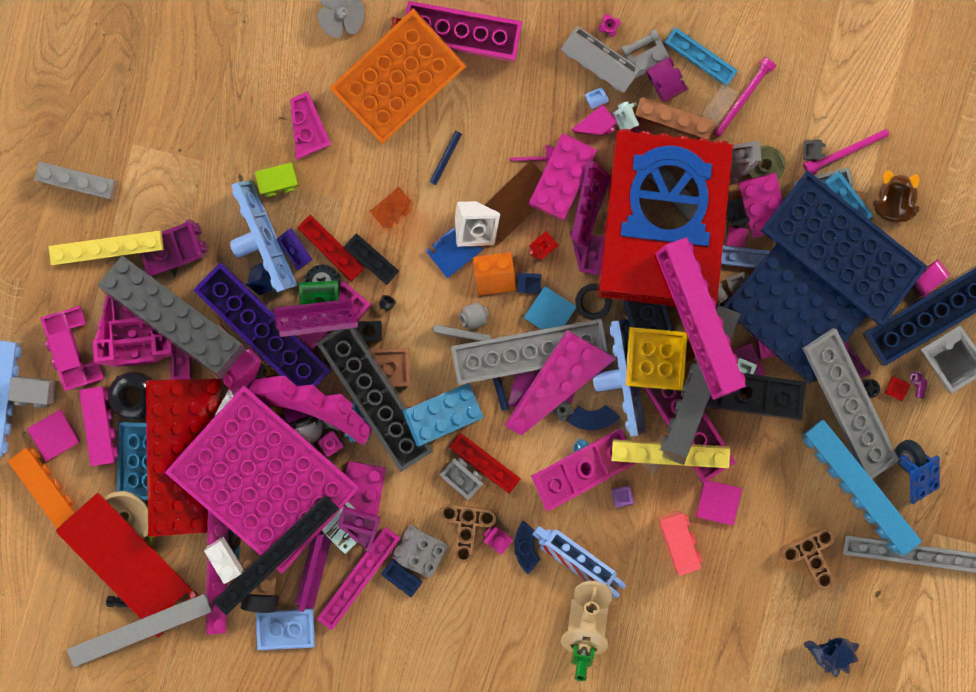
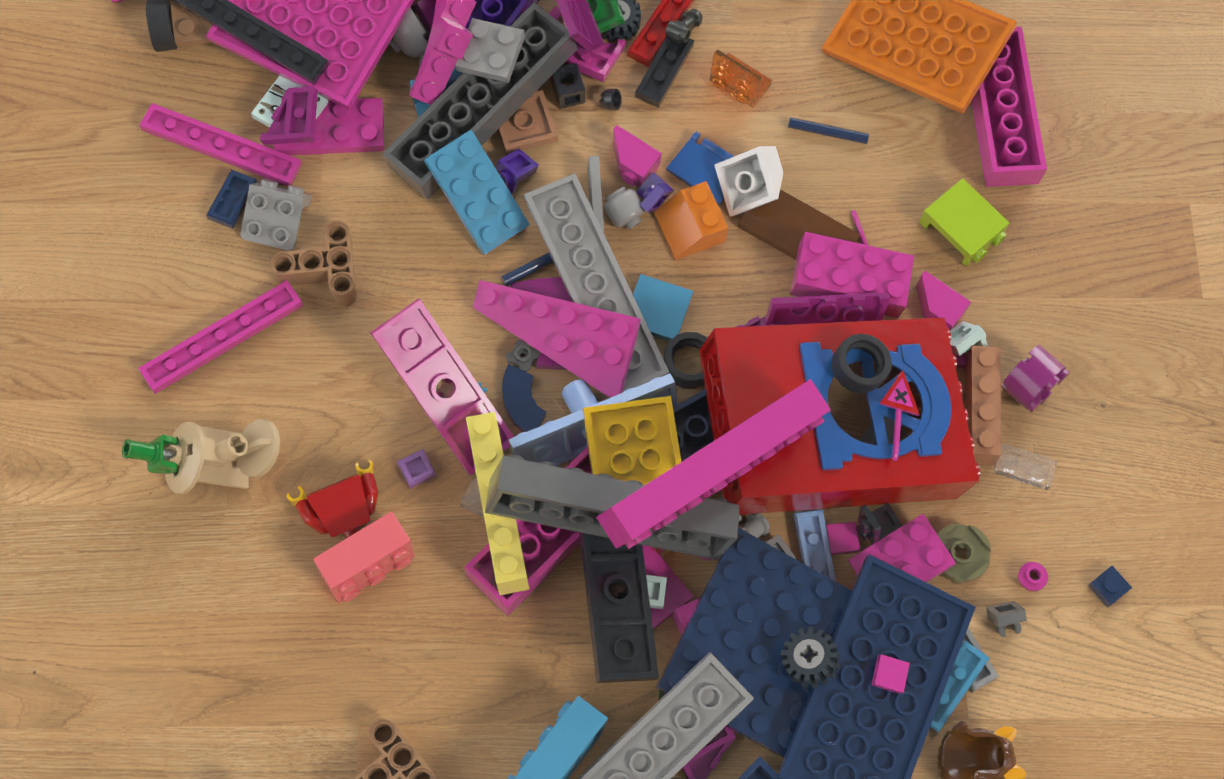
camera: 70 degrees right, 20 degrees down
(285, 629) = (131, 73): light blue tile -> none
(313, 571) = (212, 89): magenta fence -> none
(330, 443) = (397, 68): dark pink bracket -> none
(346, 380) = (491, 50): none -> light grey plate
(349, 242) = (682, 30): none -> pearl dark grey bar
(426, 383) = (515, 169): none -> dark purple bracket
(438, 299) = (634, 157): none -> dark pink slope
(461, 478) = (391, 244): light grey bracket -> none
(468, 292) = (653, 192): none -> dark purple bracket
(484, 463) = (422, 266): red tile -> none
(497, 539) = (315, 310): dark pink bracket -> none
(501, 603) = (220, 337): none -> dark pink plate
(525, 547) = (310, 352): dark blue tile -> none
(529, 283) = (691, 268): dark blue panel -> none
(541, 86) = (966, 221): none -> lime panel
(542, 246) = (748, 274): red brick -> none
(577, 558) = (306, 423): light blue hinge -> none
(596, 98) = (976, 296): light blue tile -> none
(600, 59) = (1030, 288): light grey brick -> none
(607, 19) = (1082, 287): dark pink plate -> none
(639, 550) = (340, 505): none -> red torso
(648, 57) = (1042, 337): light grey plate -> none
(652, 187) = (877, 351): none -> black tyre
(671, 180) = (901, 399): none -> piece
(700, 56) = (1081, 426): dark azure tile -> none
(719, 502) = (439, 610): dark pink tile -> none
(744, 159) = (960, 513): light grey wing -> none
(766, 66) = (1100, 518): dark pink piece -> none
(787, 127) = (1028, 583): none -> dark pink plate
(809, 76) = (1110, 586): none -> dark blue plate
(813, 166) = (981, 623): dark pink piece -> none
(820, 280) = (815, 667): none -> black wheel
(838, 239) = (890, 674): none -> dark pink tile

